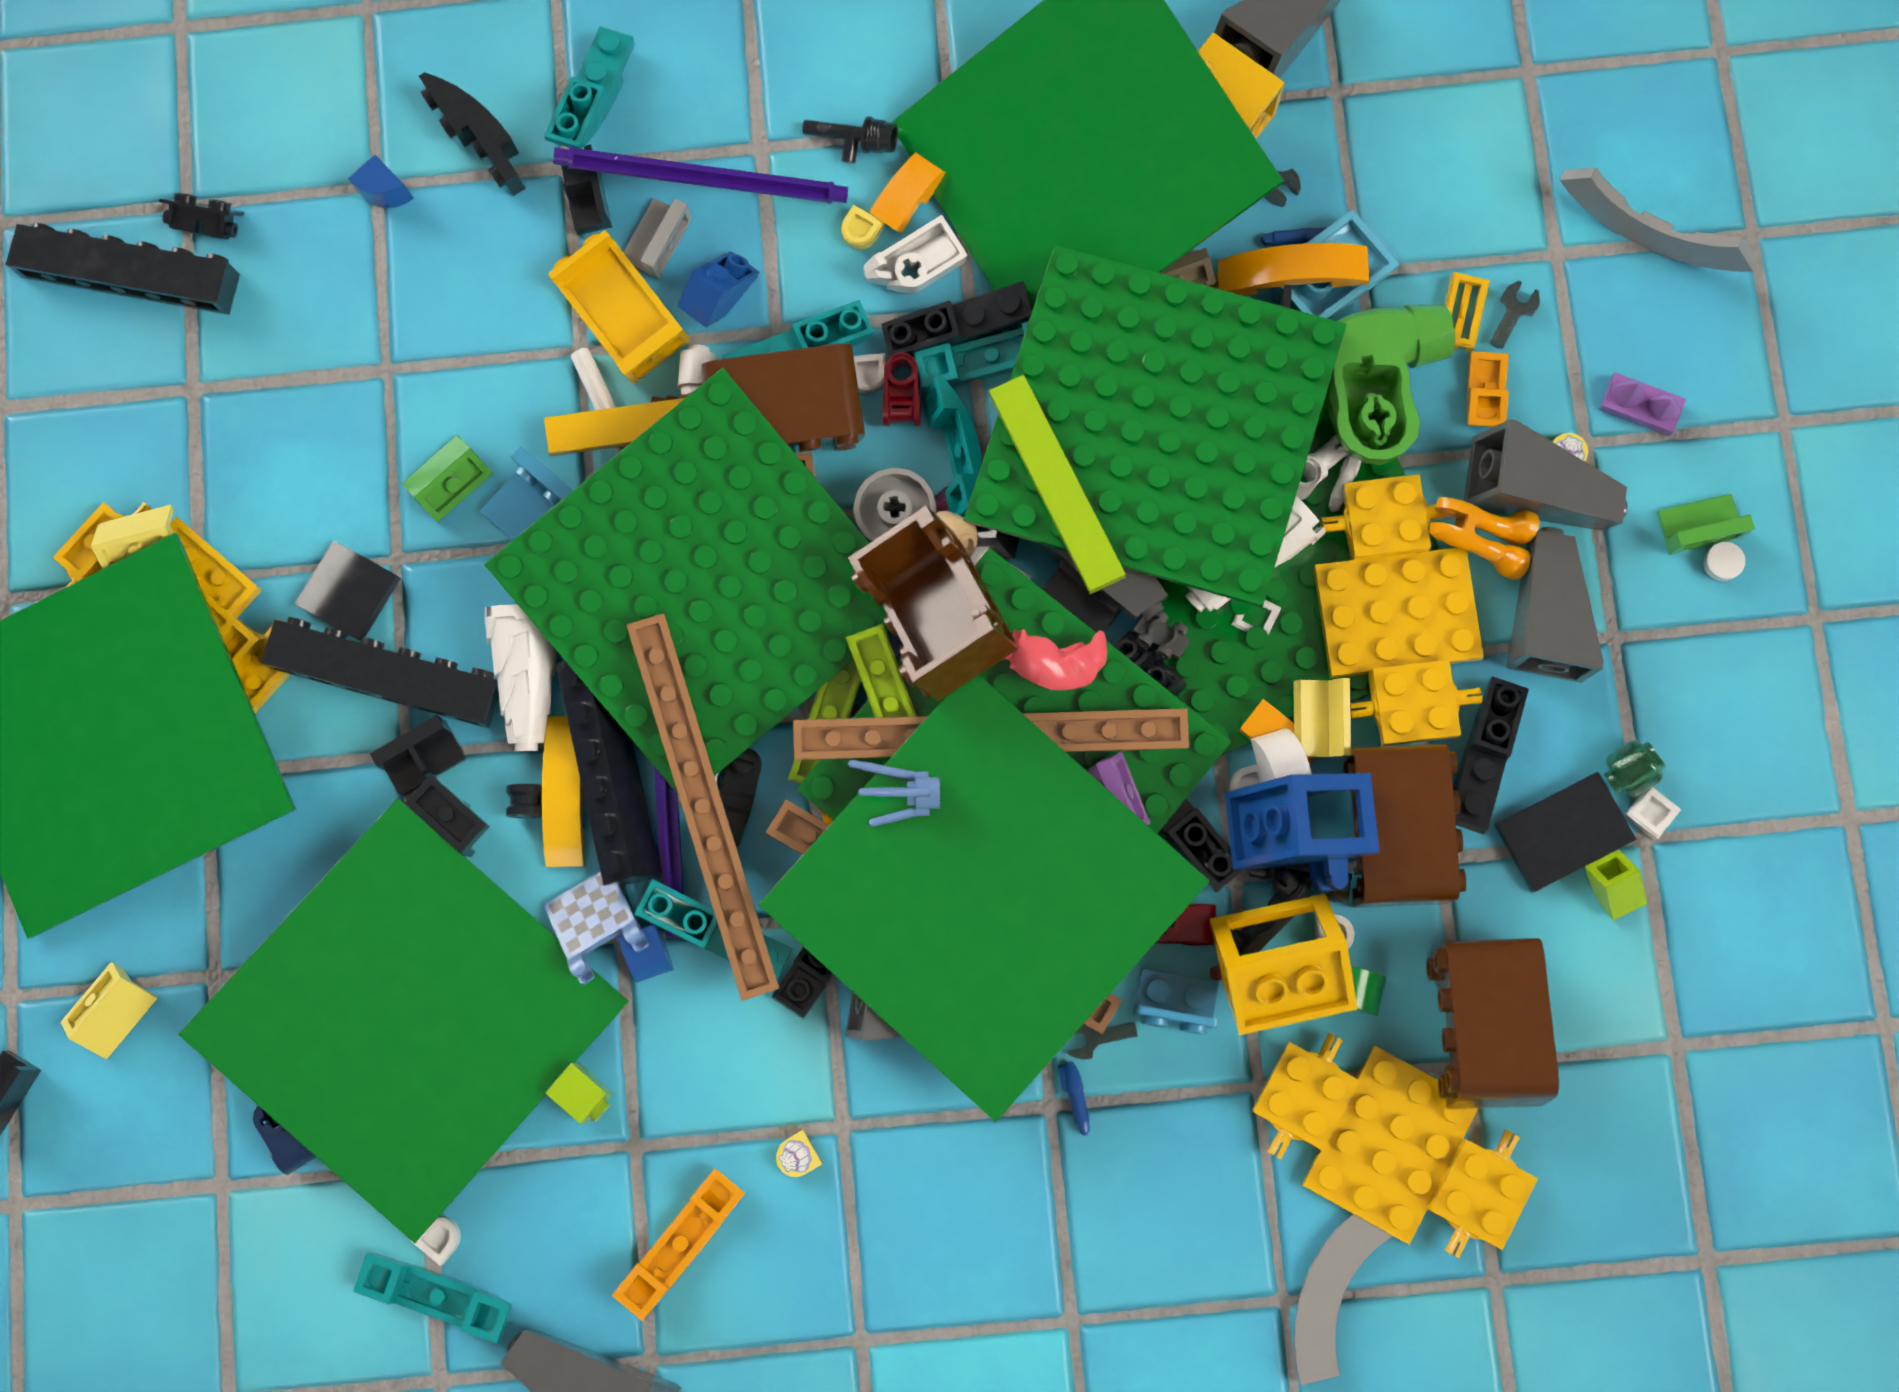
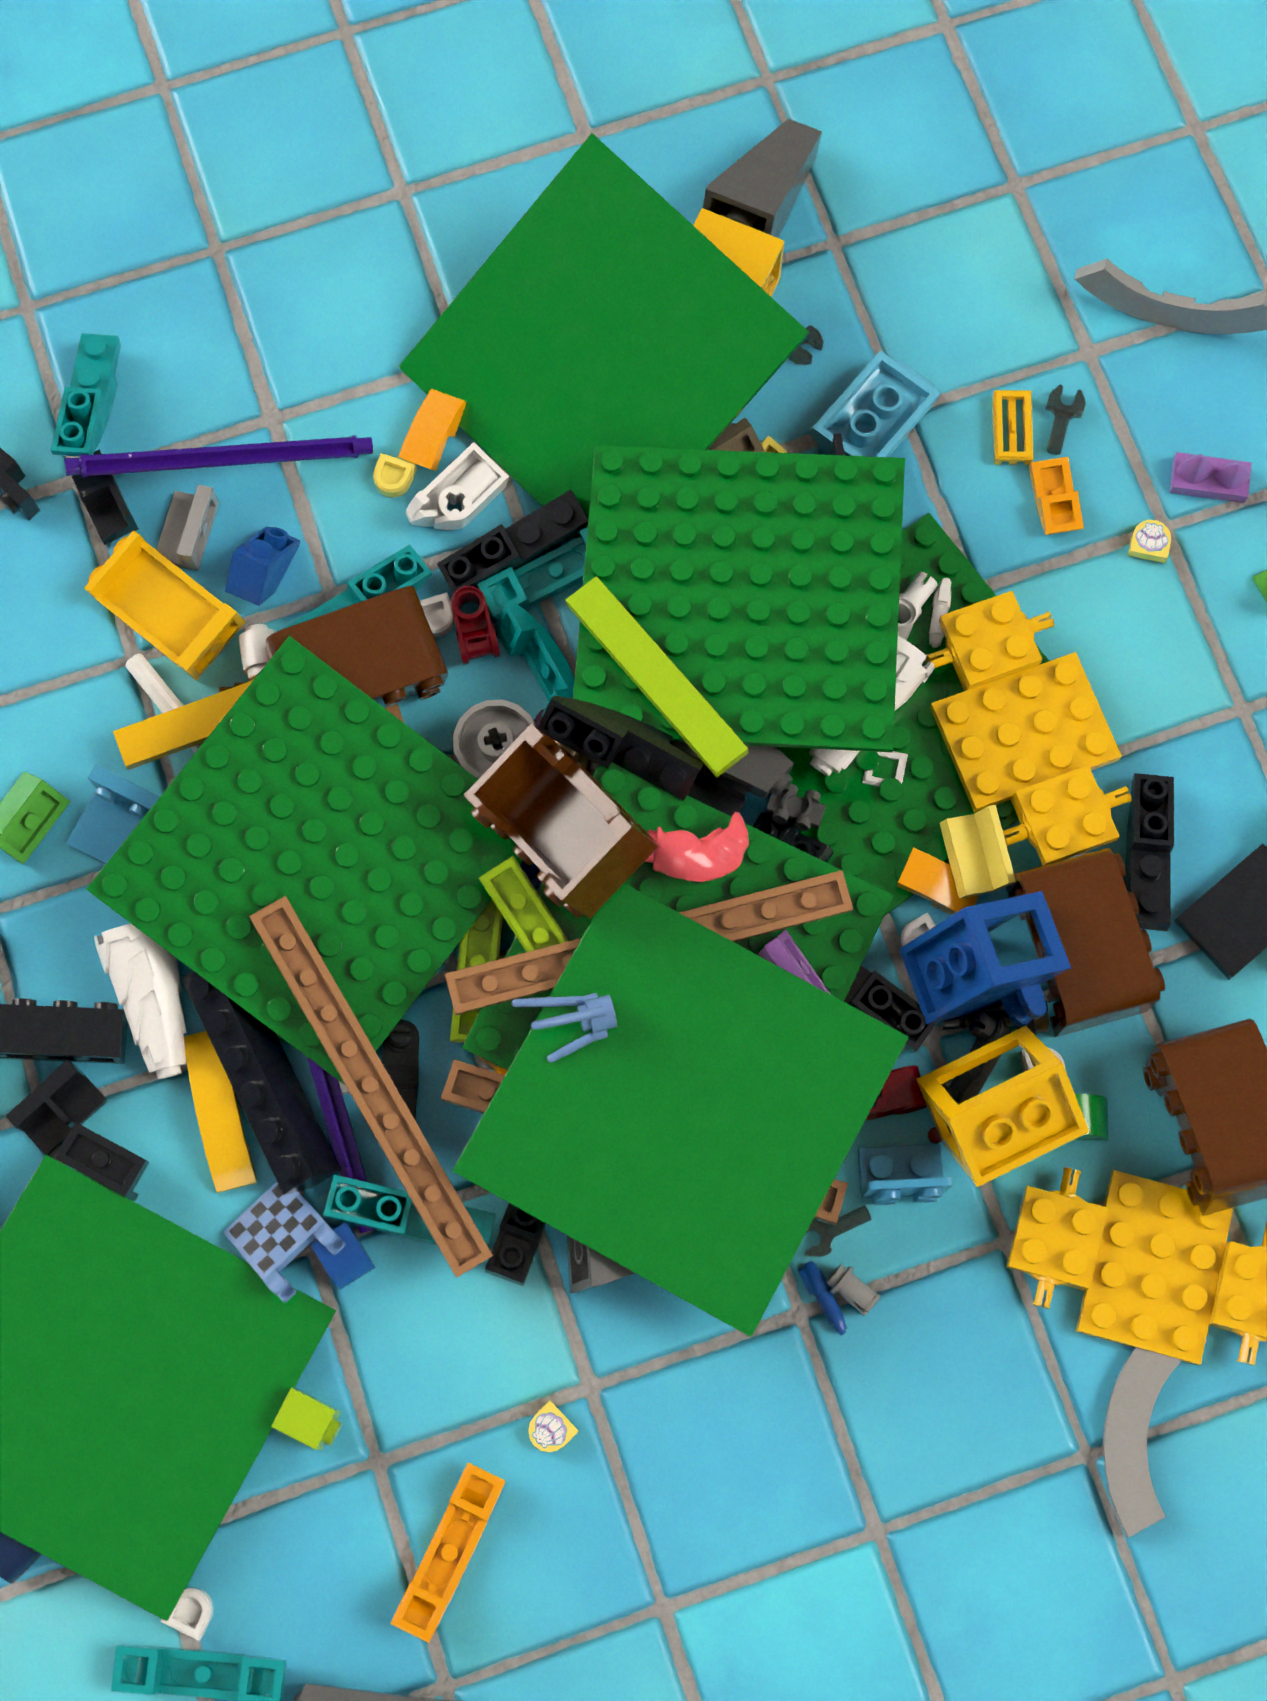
camera: 20 degrees left, 5 degrees down
(524, 801) = (179, 1128): black wheel -> none
(874, 136) = (385, 380): black piece -> none
(1005, 534) = (623, 740): none -> black slope
(1103, 1096) = (852, 1289): none -> light grey pin
(1279, 755) = (943, 897): white brick -> none
(1290, 237) = (825, 391): blue piece -> none
(1294, 265) = (838, 413): light orange slope -> none
(1371, 380) = (941, 509): bright green piece -> none
(1514, 529) = (1119, 625): light orange piece -> none
(1523, 470) = (1126, 571): dark grey slope -> none
(1553, 613) = (1179, 700): dark grey slope -> none

